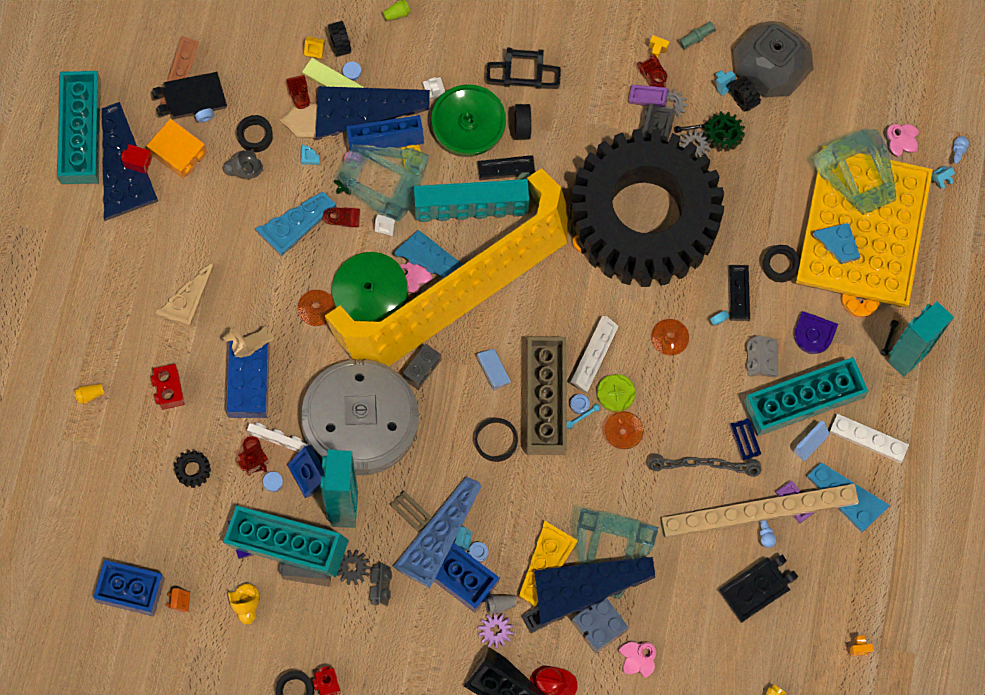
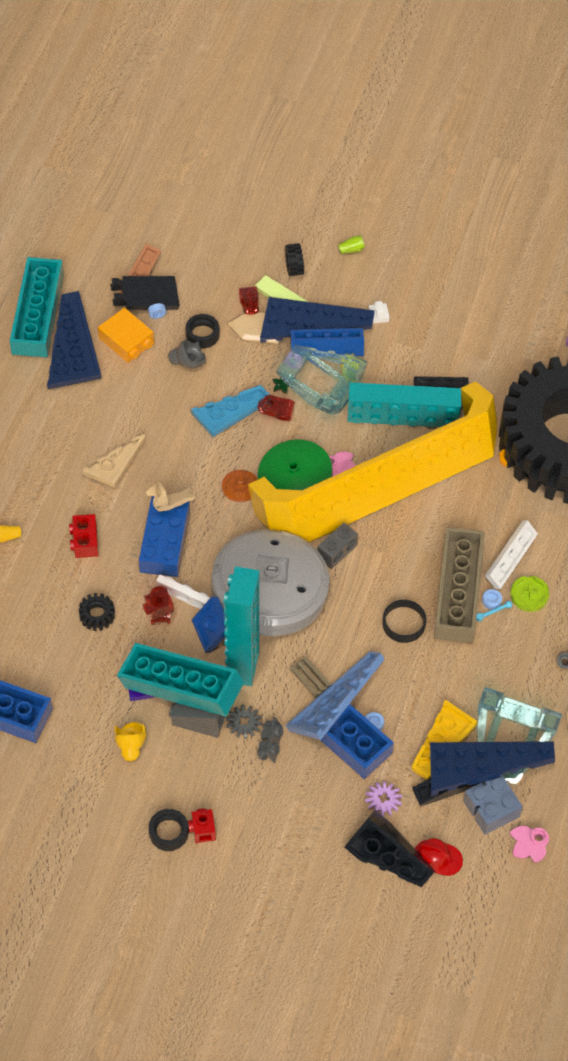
camera: 10 degrees right, 15 degrees down
(136, 158) = (87, 336): red brick -> none
(179, 600) = (64, 729): orange tile -> none
(273, 481) = (175, 633): light blue tile -> none
(309, 156) = (251, 356): medium azure tile -> none
(314, 47) = (269, 266): yellow tile -> none
(352, 71) = (302, 289): light blue tile -> none
(385, 225) = (317, 419): white tile -> none
(427, 253) = (352, 446): dark azure wing -> none
(463, 538) = (361, 703): medium azure tile -> none
(468, 120) = (409, 339): green dish -> none
(493, 369) = (408, 557): light blue slope -> none
(498, 604) = (390, 772): light grey cone -> none
(519, 81) = (466, 316): black bar -> none
(522, 121) = (461, 345): black tyre -> none
(628, 422) = (534, 619): clear orange dish -> none

